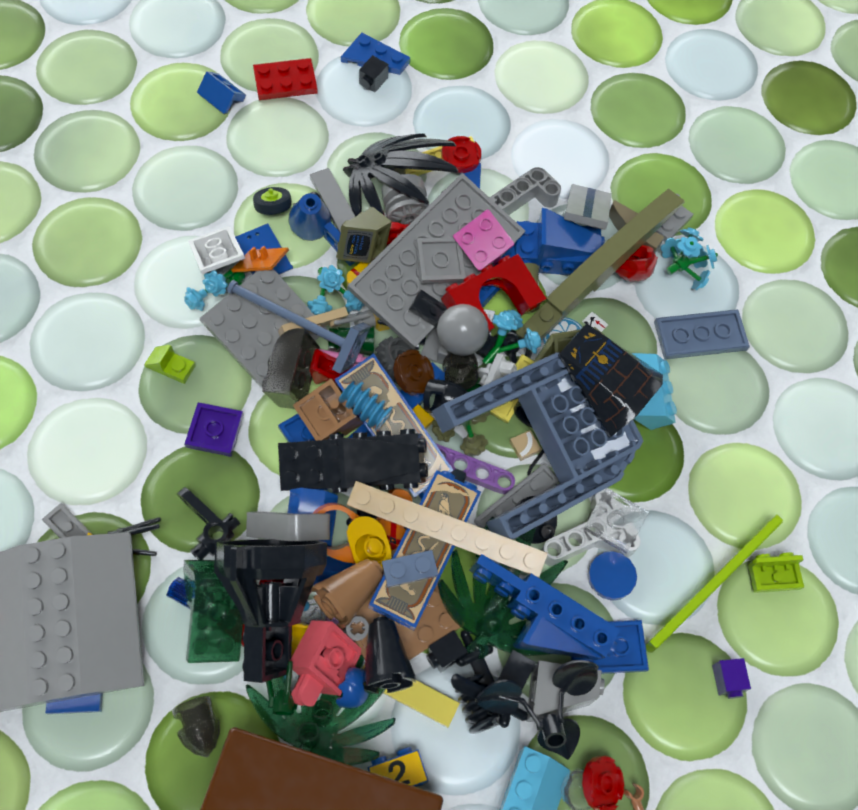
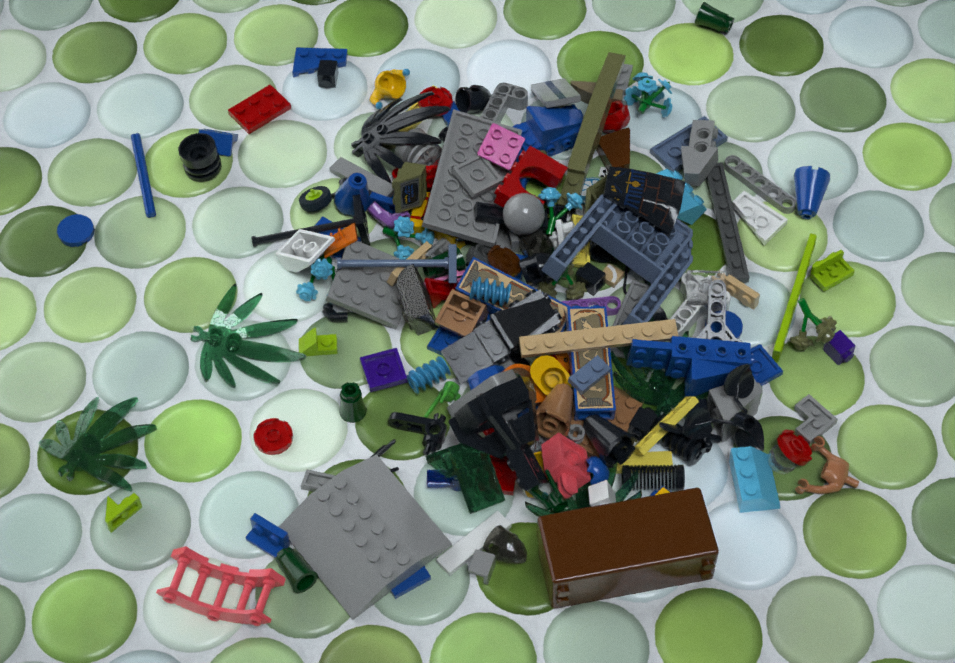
camera: 20 degrees left, 10 degrees down
(26, 118) = (75, 230): none -> blue tile
(55, 445) = (273, 436): none -> red tile
(79, 314) = (227, 343): none -> clear green plant
(127, 93) = (143, 175): none -> blue axle
(153, 453) = (352, 405): none -> dark green plant
(157, 733) = (483, 565): none -> light grey panel
(171, 694) = (465, 548): none -> white tile
(187, 100) = (200, 157): none -> black wheel
(206, 339) = (332, 315): none -> black arm
(252, 462) = (428, 373): none -> dark azure piece
(262, 493) = (448, 393): none -> bright green plant
(294, 250) = (359, 219): none -> black tile
(328, 255) = (384, 217): none -> medium lavender arm
(336, 730) = (601, 494): none -> white brick
(425, 115) = (389, 85): none -> yellow piece
(427, 737) = (680, 476): none -> black piece
(472, 670) = (672, 417): none -> light yellow tile
(499, 170) = (472, 99): none -> black helmet
(499, 438) = (592, 277): none -> black brick
(583, 579) = (720, 318): none -> beam
(615, 304) = (615, 149): none -> reddish brown slope
(654, 538) = (742, 292): none -> tan plate
(655, 755) = (817, 419): none -> light grey plate
(688, 451) = (727, 224): none -> dark grey plate
(694, 363) = (701, 154): none -> light grey brick
(729, 642) = (825, 328): none -> olive plant
(730, 461) = (759, 217): none -> white wing
(753, 431) = (762, 191): none -> light grey beam
(806, 460) = (810, 189): none -> blue cone
(812, 204) = (714, 18): none -> dark green plant

